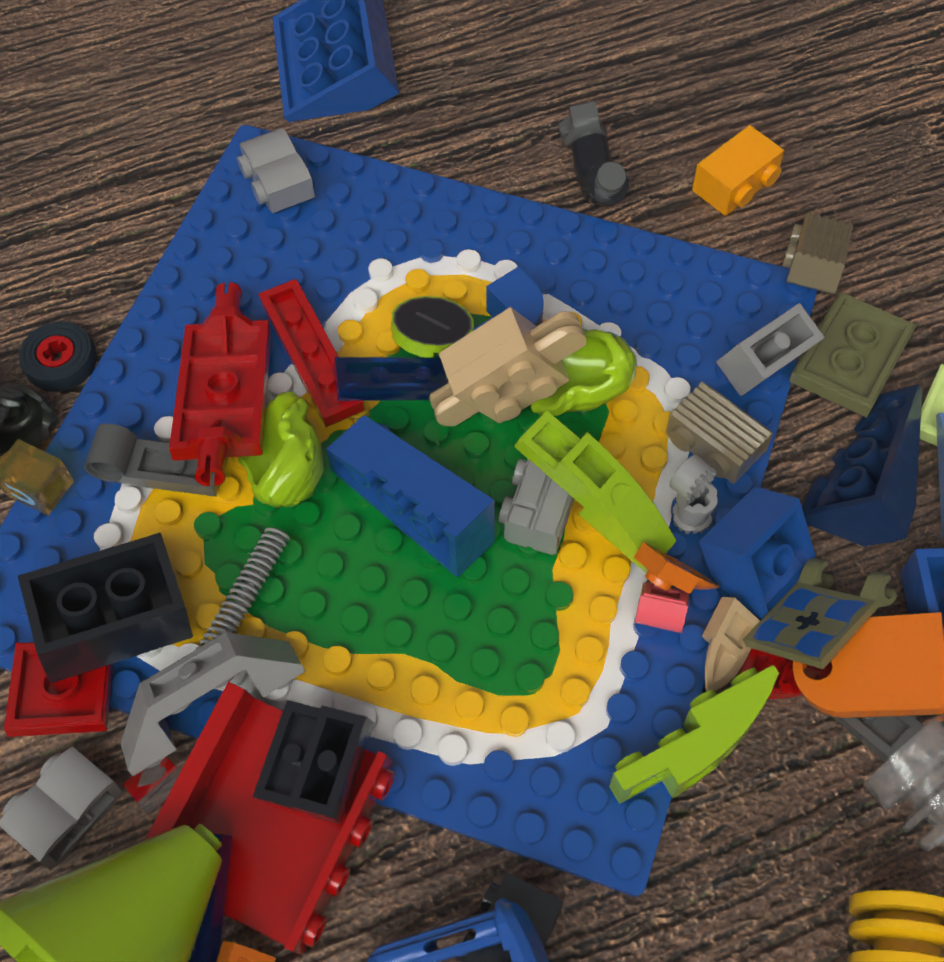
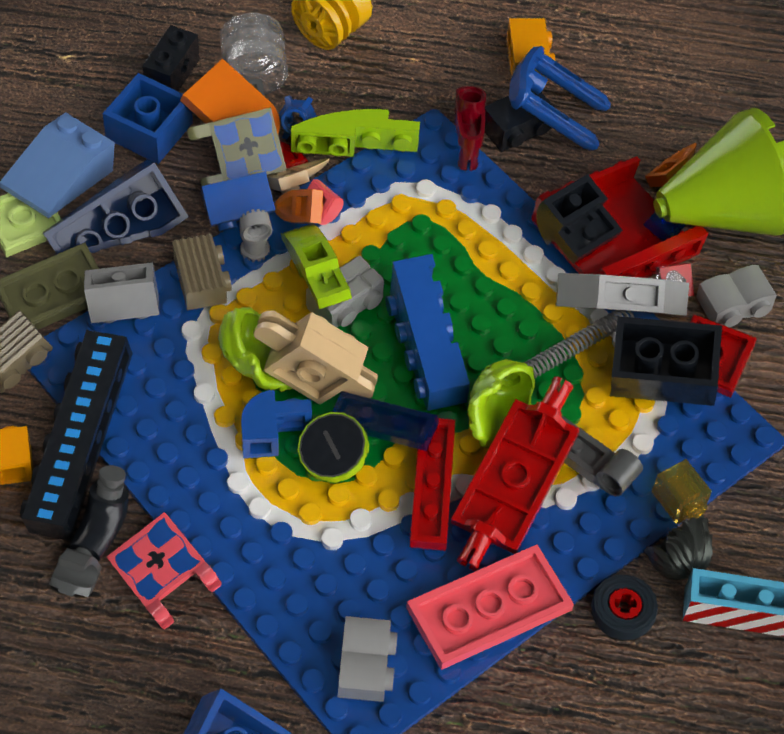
camera: 155 degrees left, 5 degrees down
(184, 270) = (489, 606): none -> coral plate
(511, 167) = (158, 563): none -> coral flag
(584, 879) = (469, 124): none -> dark red connector
(686, 219) = (77, 435): none -> black brick
(794, 726) = (286, 115): none -> blue rock

